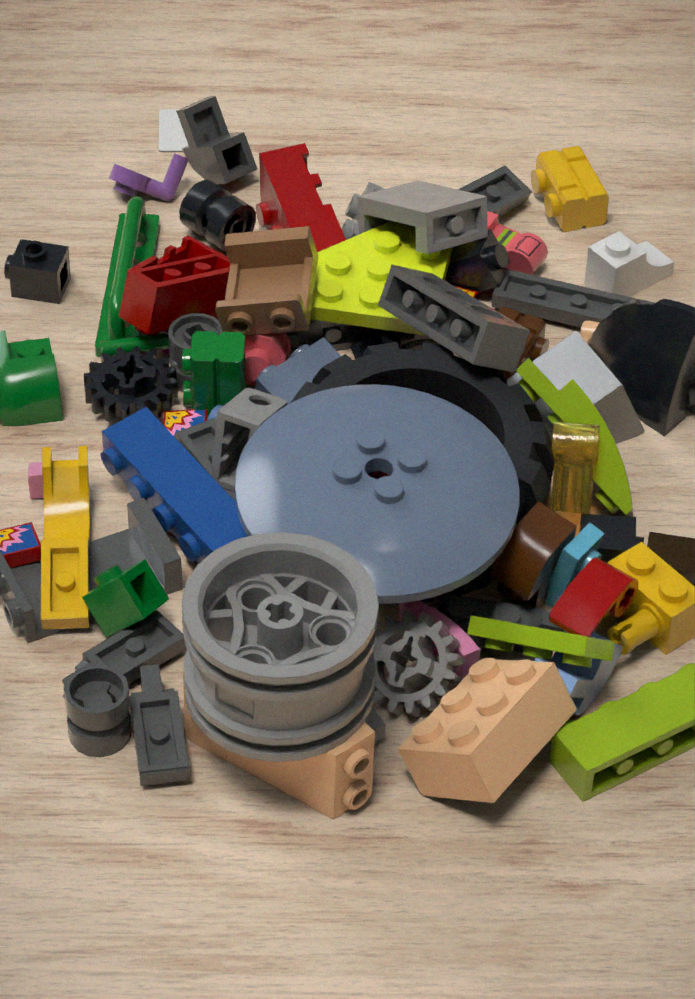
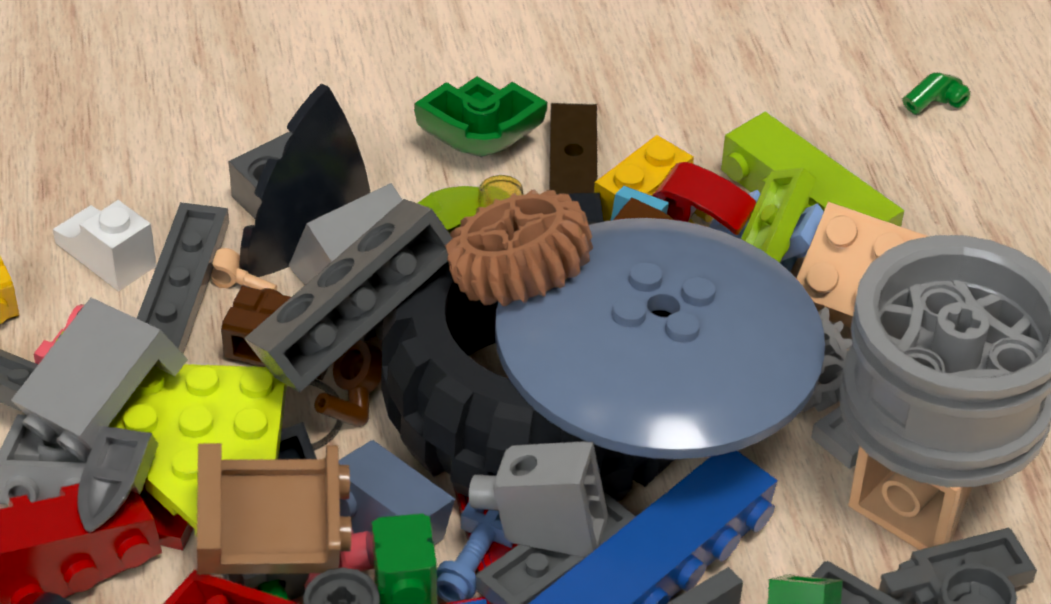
camera: 100 degrees left, 0 degrees up
(331, 222) = (113, 470): none -> flat silver plate
(461, 390) = (519, 247): none -> nougat gear

